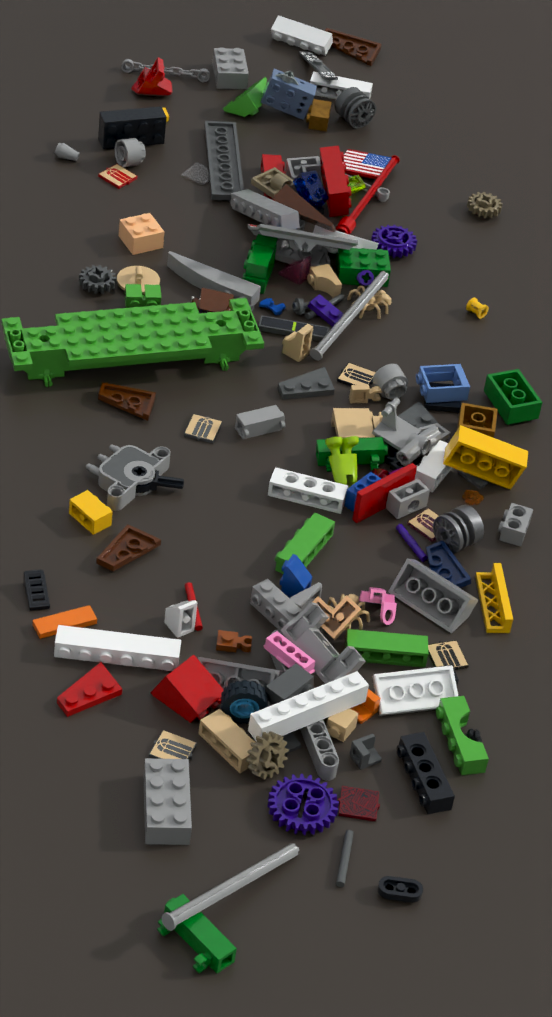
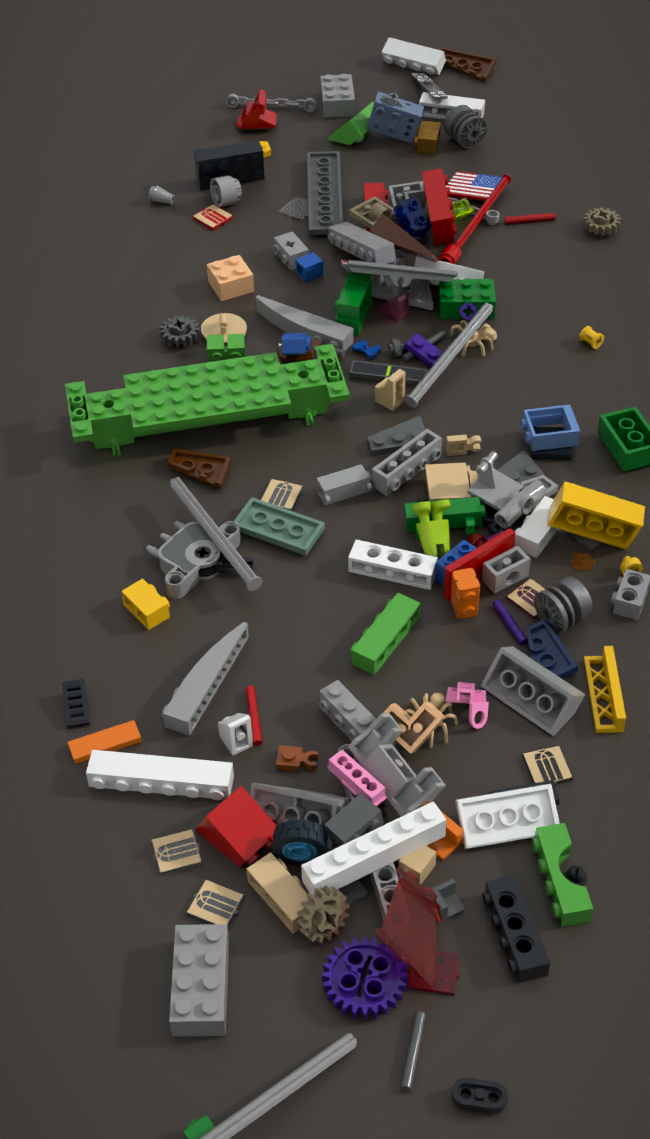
camera: 10 degrees right, 5 degrees up
(89, 691) = (123, 831): red wing -> none
(126, 547) = (182, 645): reddish brown wing -> none
(136, 709) = (176, 852): none -> piece
(147, 578) = (203, 681): none -> light grey slope
(185, 494) = (253, 582): none -> light grey axle
(196, 212) = (289, 248): none -> light grey brick
(204, 454) = (279, 526): none -> sand green plate
(213, 295) = (295, 343): none -> blue brick
(214, 228) = (309, 267): none -> blue brick
(295, 577) = (371, 677): blue slope -> none
(306, 596) = (382, 700): light grey slope -> none
(316, 405) = (406, 462): none -> light grey brick
(324, 279) = (424, 315): tan arch -> none
(343, 763) = (411, 926): none -> clear red piece
(355, 375) = (455, 423): piece -> none
(373, 515) = (465, 593): none -> orange brick
(389, 647) = (476, 760): bright green brick -> none
(391, 381) = (492, 429): light grey piece -> none
(395, 240) = (503, 267): dark purple gear -> none
(418, 197) = (529, 218): none -> red bar
(478, 418) = (589, 470): pearl gold brick -> none
(514, 498) = (631, 564): none -> yellow tile

